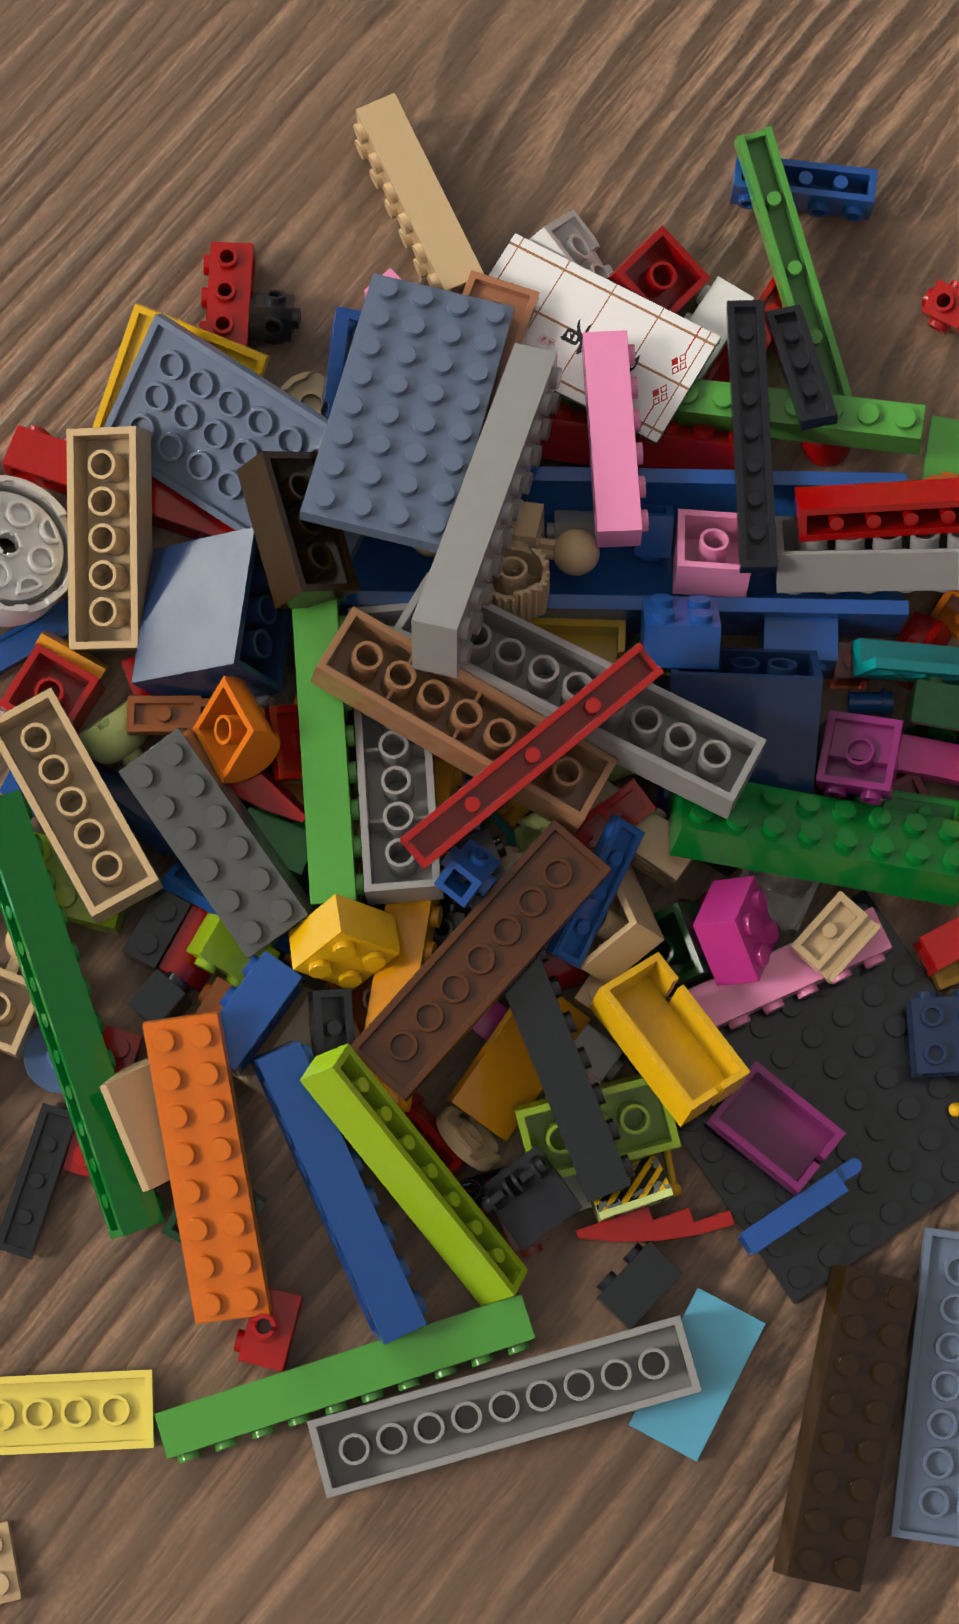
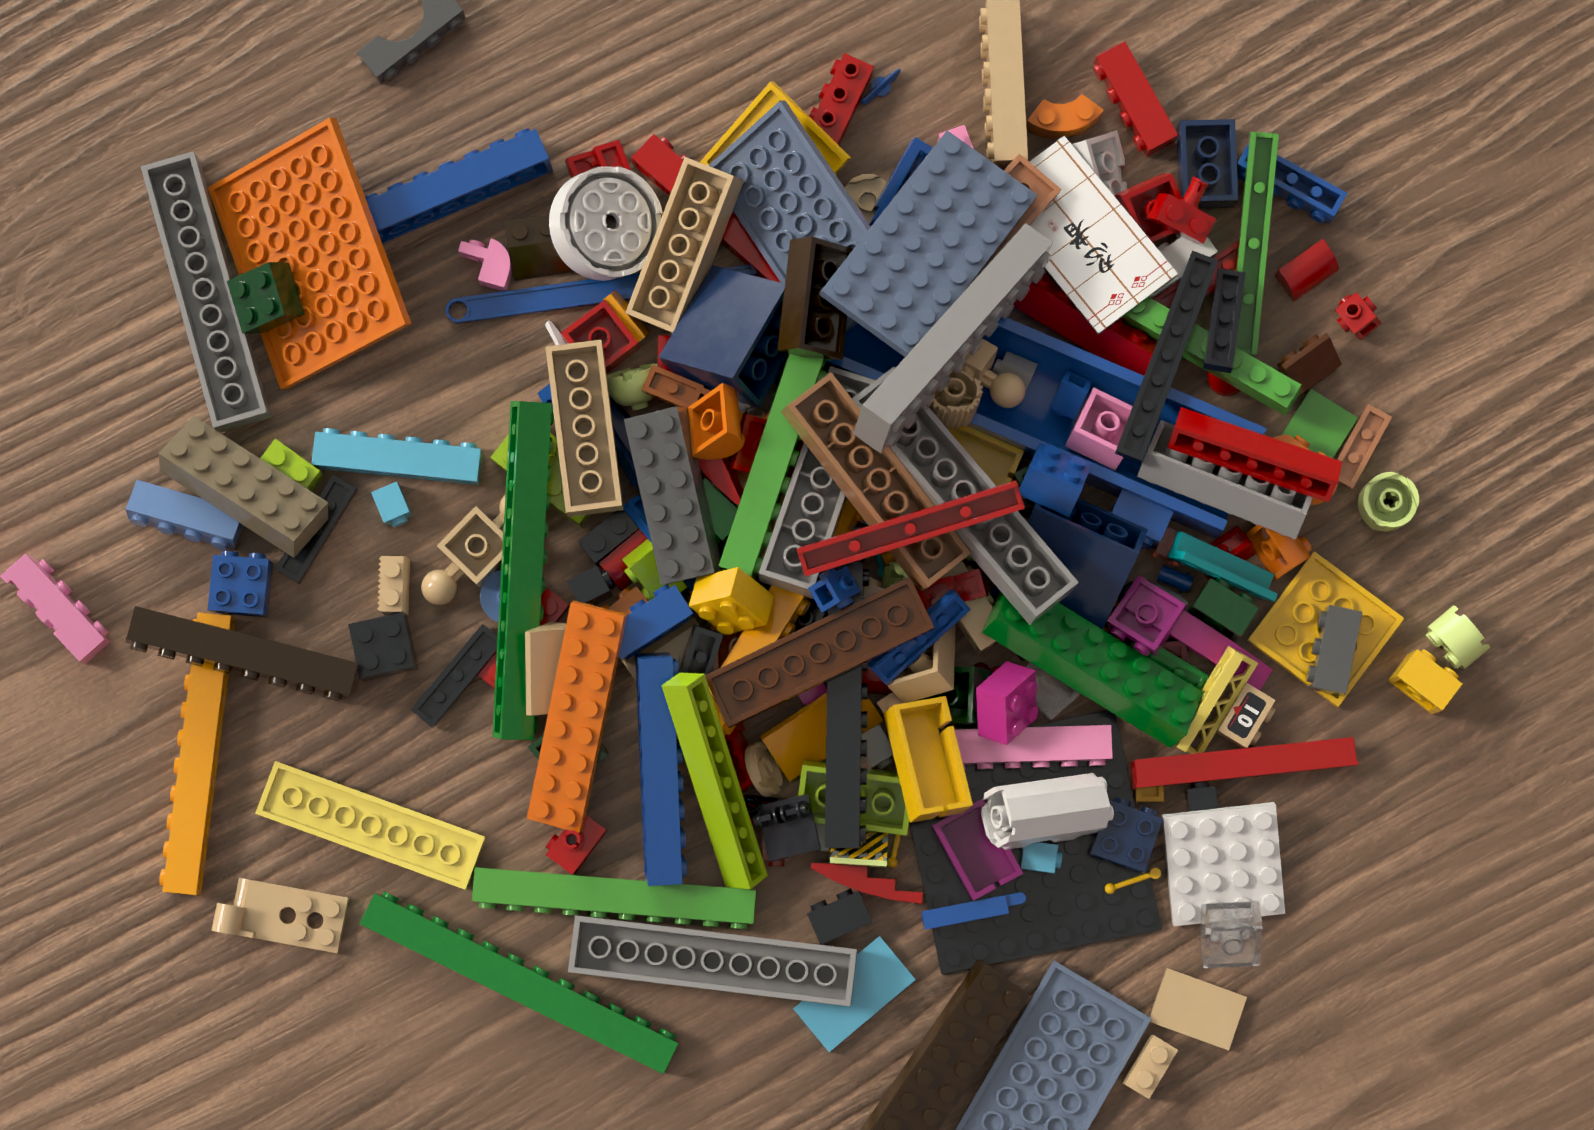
camera: 25 degrees right, 5 degrees up
(269, 1538) = (519, 982): none -> green brick
(271, 267) = (880, 86): none -> blue piece
(273, 317) = (866, 125): black brick -> none
(497, 221) = (1065, 120): none -> orange brick
(579, 164) = (1135, 99): none -> red brick
(612, 439) = (1066, 319): bright pink brick -> none
(698, 201) = (1209, 153): none -> dark blue brick
(698, 267) = (1183, 215): none -> red brick
(835, 937) = (1074, 735): tan plate -> none
(841, 1043) = (1046, 810): none -> white brick
(855, 1105) = (1041, 857): none -> medium azure brick
(867, 280) = (1307, 270): none -> red brick
(922, 378) = (1312, 364): none -> reddish brown slope

